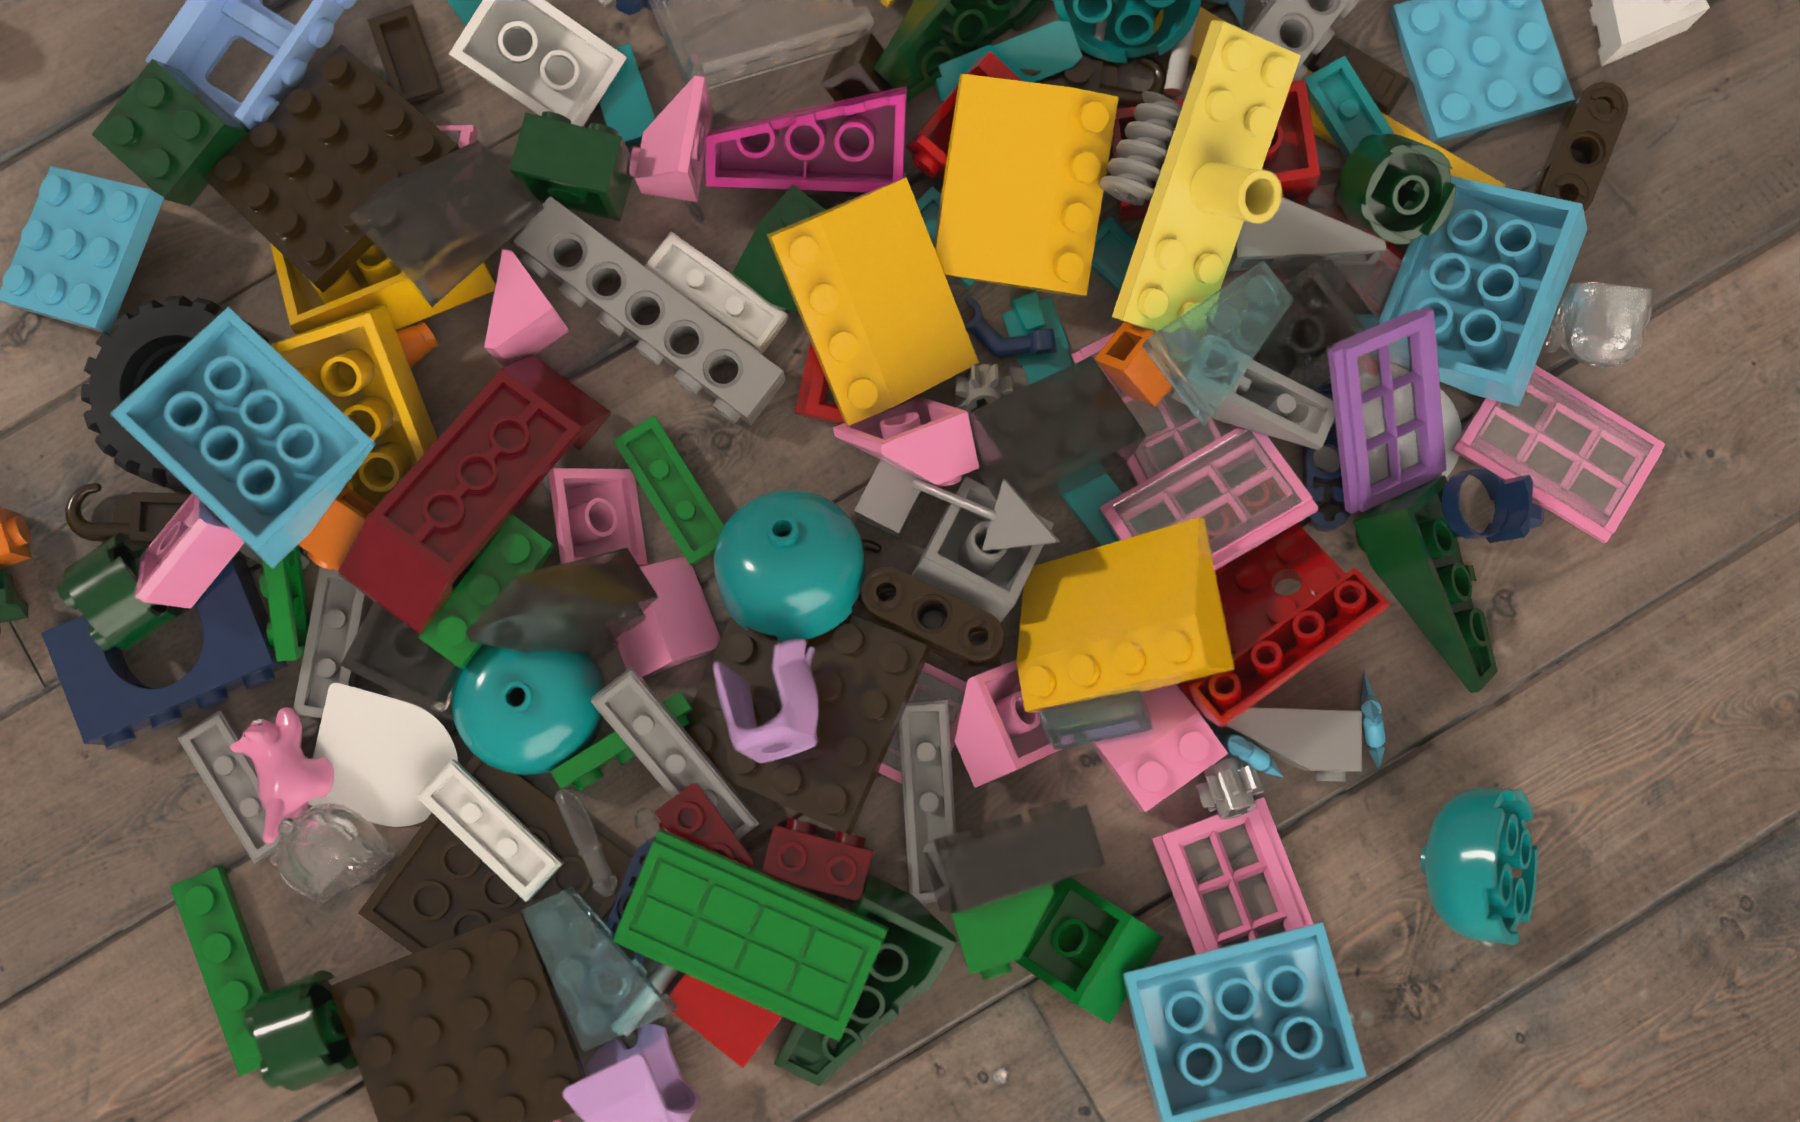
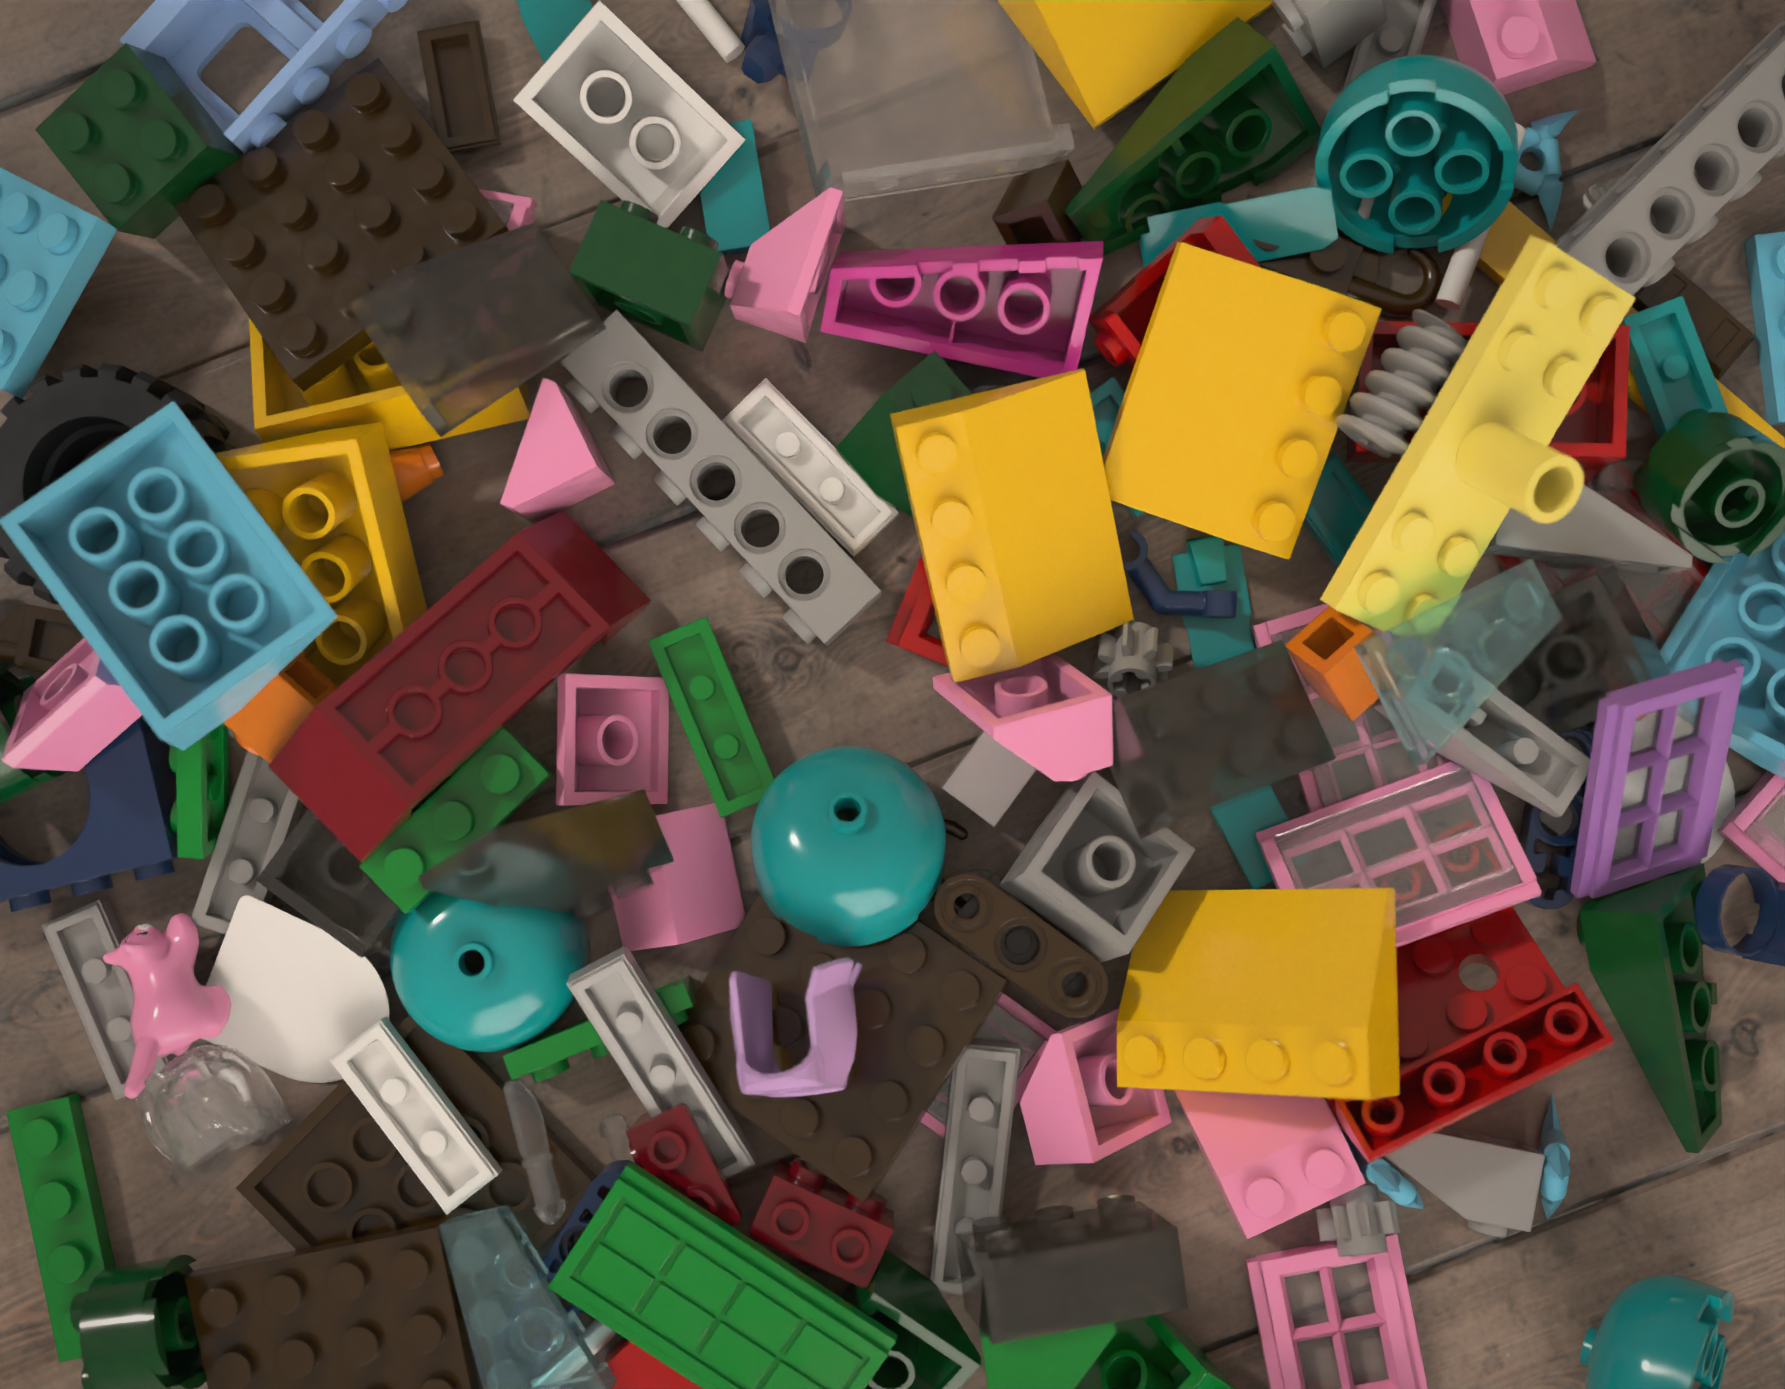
camera: 15 degrees right, 5 degrees up
(1011, 522) = (1143, 848): light grey piece -> none
(1096, 720) = (1205, 1114): clear light blue tile -> none

